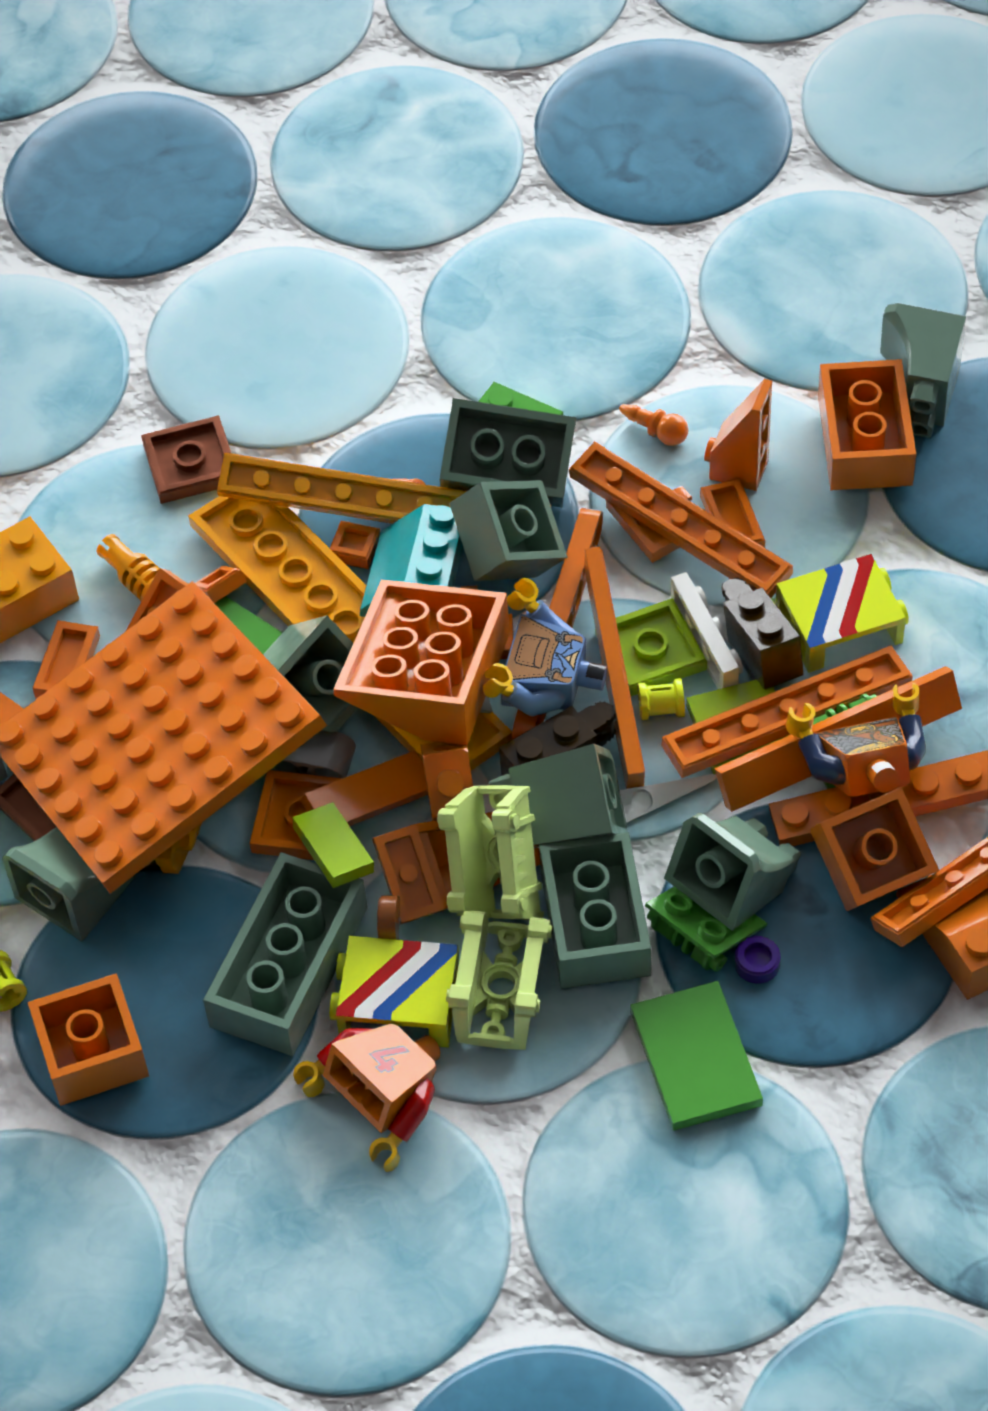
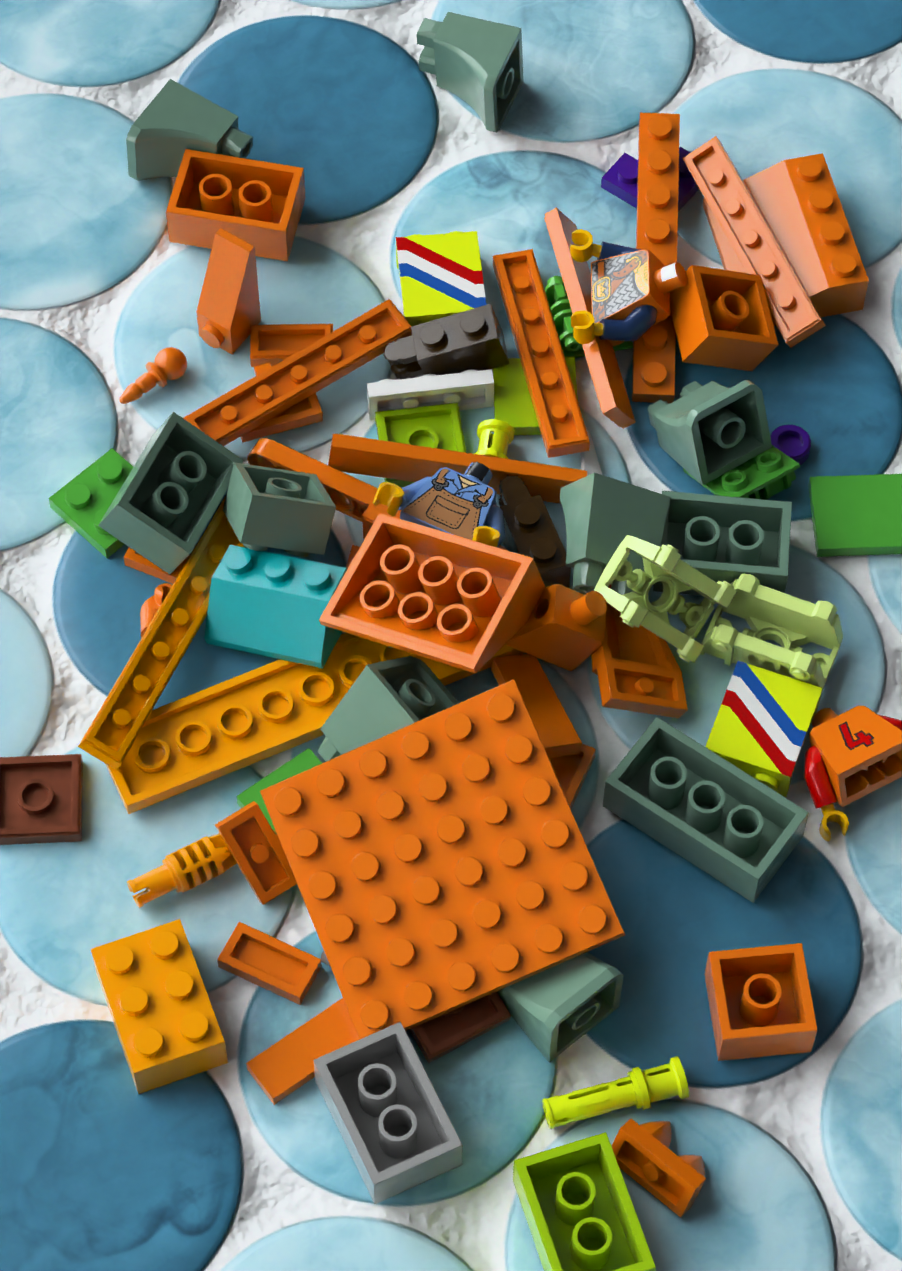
camera: 80 degrees left, 5 degrees up
(221, 582) = (224, 793): orange tile -> none
(333, 845) = (613, 731): lime tile -> none
(355, 544) = (208, 666): orange tile -> none
(388, 917) = (691, 711): dark orange tile -> none

